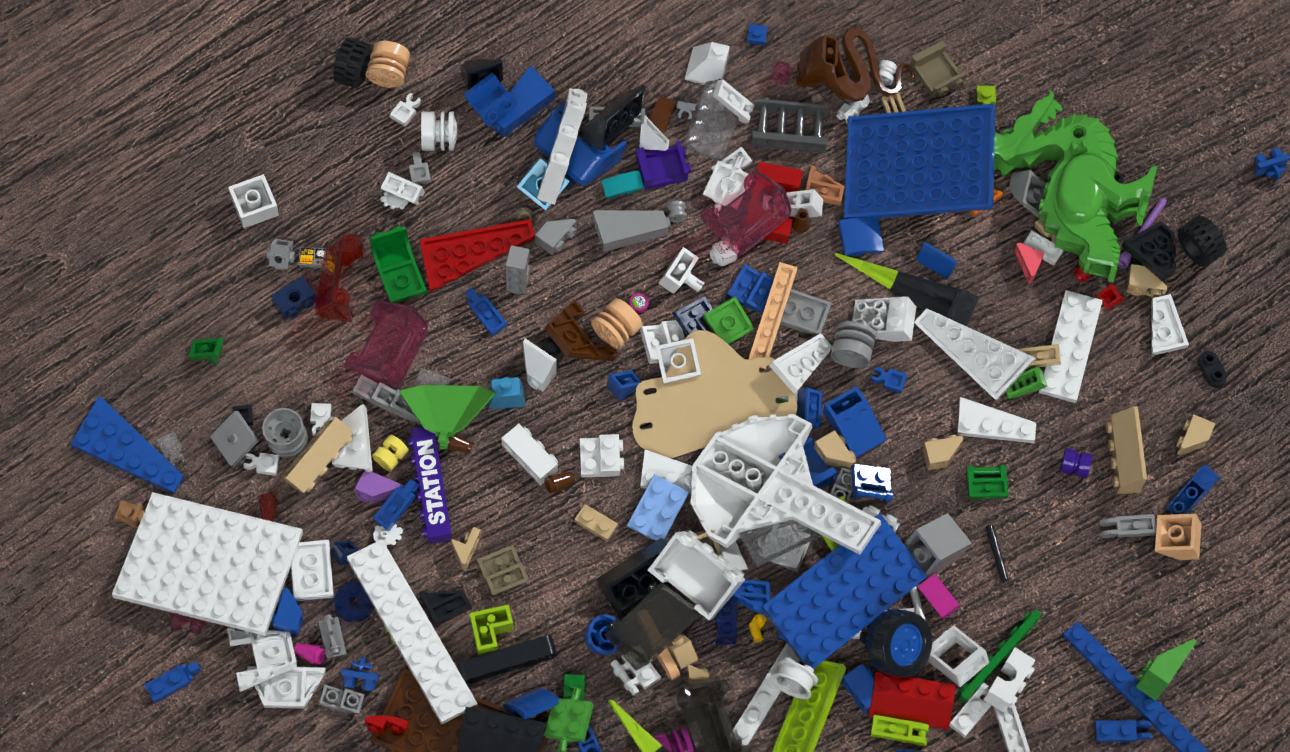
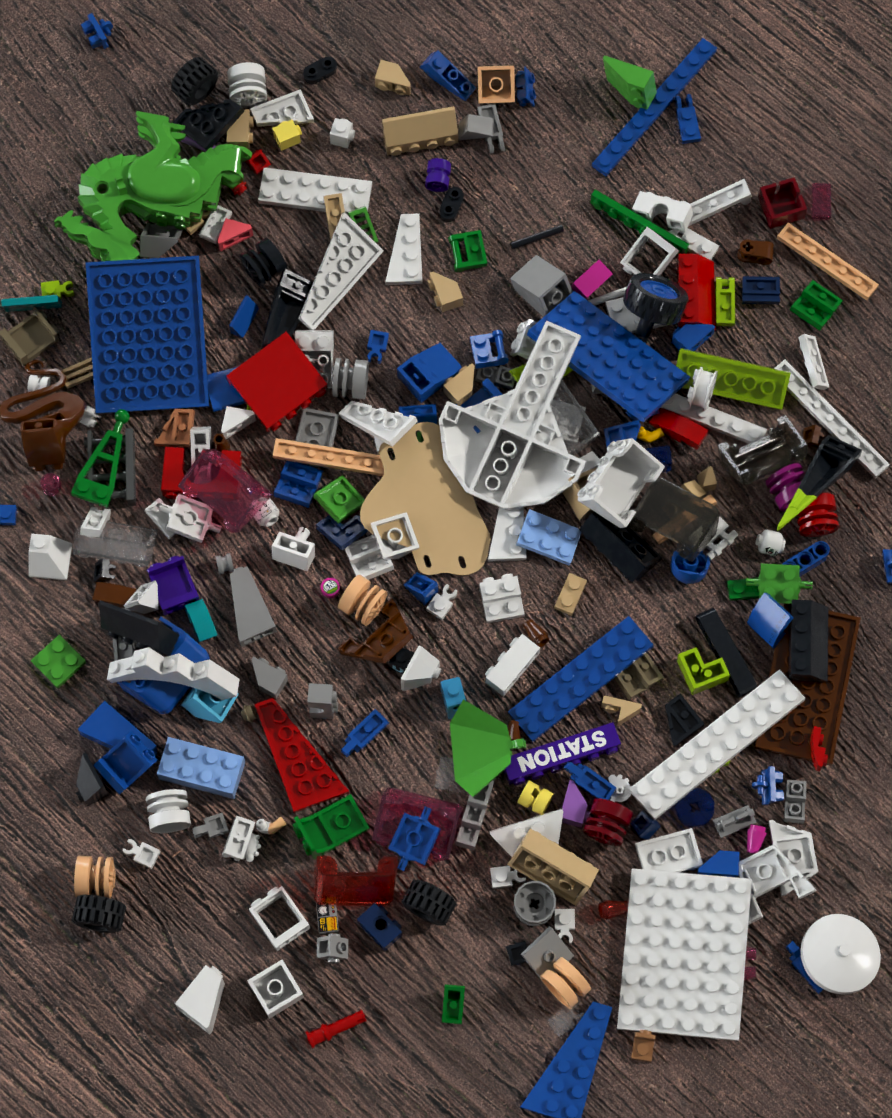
camera: 95 degrees left, 5 degrees up
(176, 711) = (840, 954): none -> white dish
(202, 447) = (565, 982): none -> light nougat wheel
(206, 241) = (326, 1032): none -> red pin
(255, 139) = (202, 998): none -> white slope
(298, 209) = (292, 933): none -> white window
(304, 338) = (429, 902): none -> black tyre
(350, 511) = (606, 824): none -> dark red wheel
(370, 338) = (414, 838): none -> blue plate
(409, 219) = (268, 827): none -> arm
(476, 166) = (201, 767): none -> light blue brick
(504, 515) = (580, 679): none -> blue plate
(604, 63) = (58, 661): none -> bright green plate
(606, 400) = (440, 604): none -> white plate
(615, 727) = (770, 542): none -> white head
(759, 656) = (679, 428): none -> red slope
(765, 100) = (94, 491): none -> green plate
(824, 237) = (236, 420): none -> white slope
(857, 276) = (277, 382): none -> red panel
(969, 71) = (29, 303): none -> teal tile
(991, 281) = (263, 262): none -> black wheel
(1042, 476) = (452, 203): none -> black plate
(1127, 508) = (475, 127): none -> light grey slope
(1135, 377) = (342, 133): none -> white brick
(1136, 323) = (287, 134): none -> light yellow brick
(1181, 570) = (525, 80): none -> blue hinge
(1189, 290) = (247, 84): none -> white wheel

